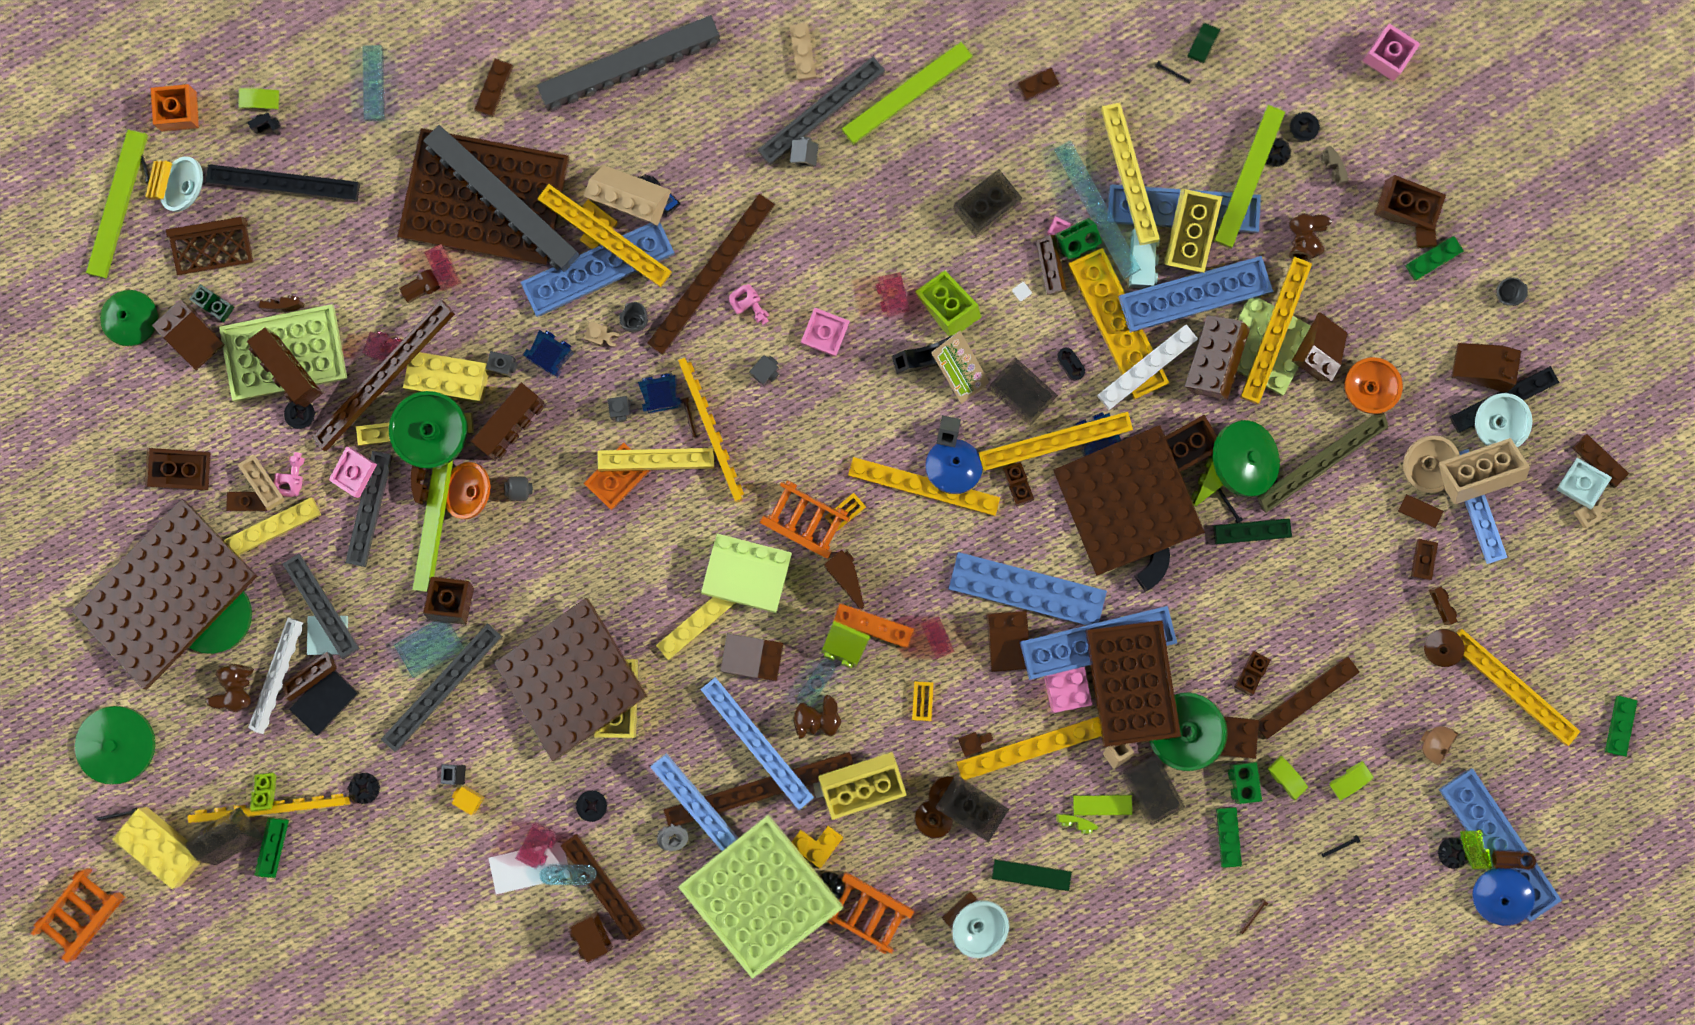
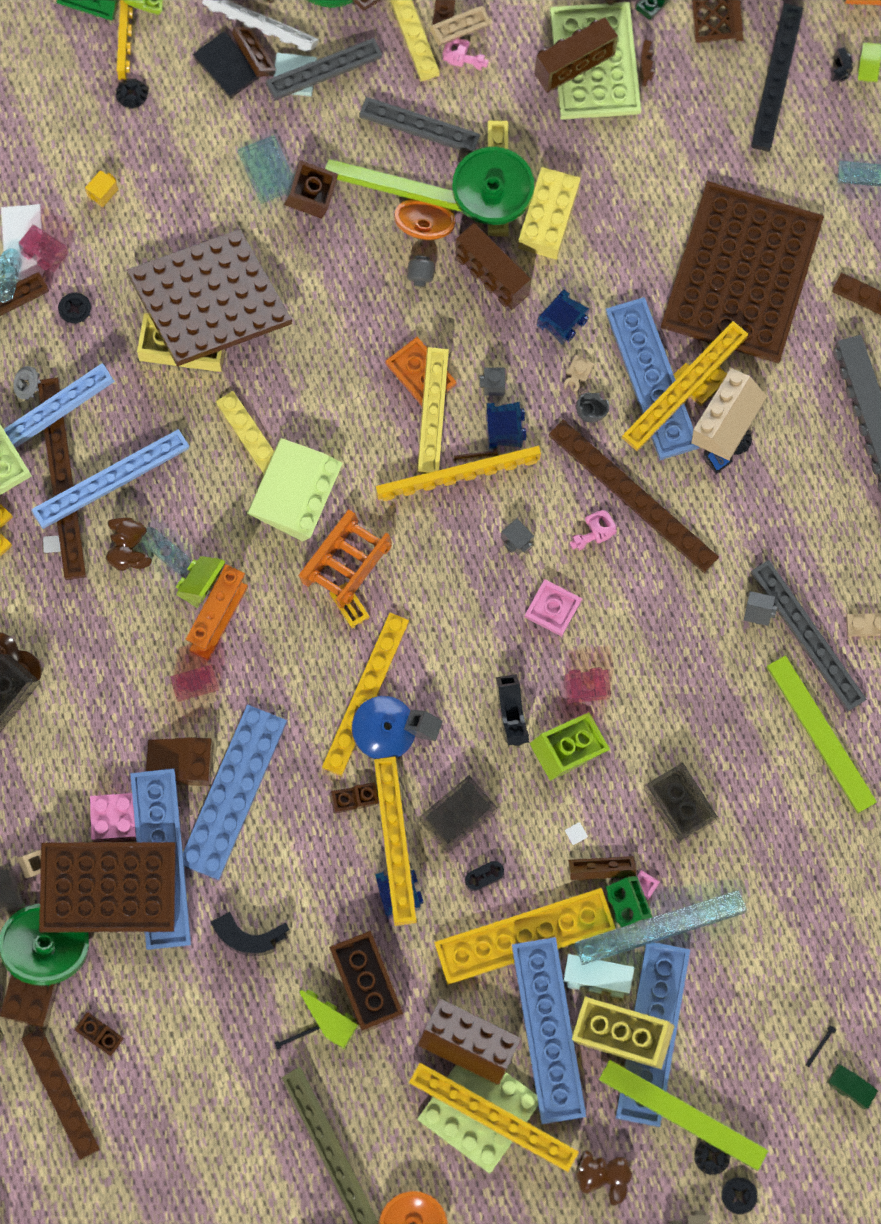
camera: 100 degrees right, 10 degrees down
(291, 412) = (519, 69): black gear -> none
(352, 472) = (459, 112): bright pink plate -> none
(375, 345) = (590, 148): clear pink brick -> none
(383, 375) = (557, 149): reddish brown plate -> none
(419, 490) = (432, 174): reddish brown slope -> none
(424, 284) = (653, 202): reddish brown piece -> none
(441, 687) = (222, 176): dark grey plate -> none
(442, 267) = (668, 221): clear pink brick -> none
(453, 774) = (131, 179): black slope -> none
(498, 195) = (736, 285): dark grey brick -> none
(501, 364) = (557, 268): dark grey brick -> none
(752, 657) = (204, 488): slope -> none
(844, 572) = (274, 593): reddish brown slope -> none
(862, 785) = (46, 580): light yellow brick -> none
(930, 701) = (146, 664): yellow tile -> none
(960, 367) = (492, 744): sticker -> none
(972, 743) = (72, 709): reddish brown plate -> none
(1029, 748) = (56, 765): yellow plate -> none
(1038, 84) = (819, 885): reddish brown plate -> none
(1128, 500) = (316, 914): reddish brown plate -> none
(1130, 174) = (699, 971): light yellow plate -> none
(1147, 367) = (468, 960): white plate -> none
(1246, 458) = (346, 1058): green dish -> none
(1252, 531) = (262, 1059): dark green tile -> none
(1322, 349) = (466, 1172): reddish brown slope -> none

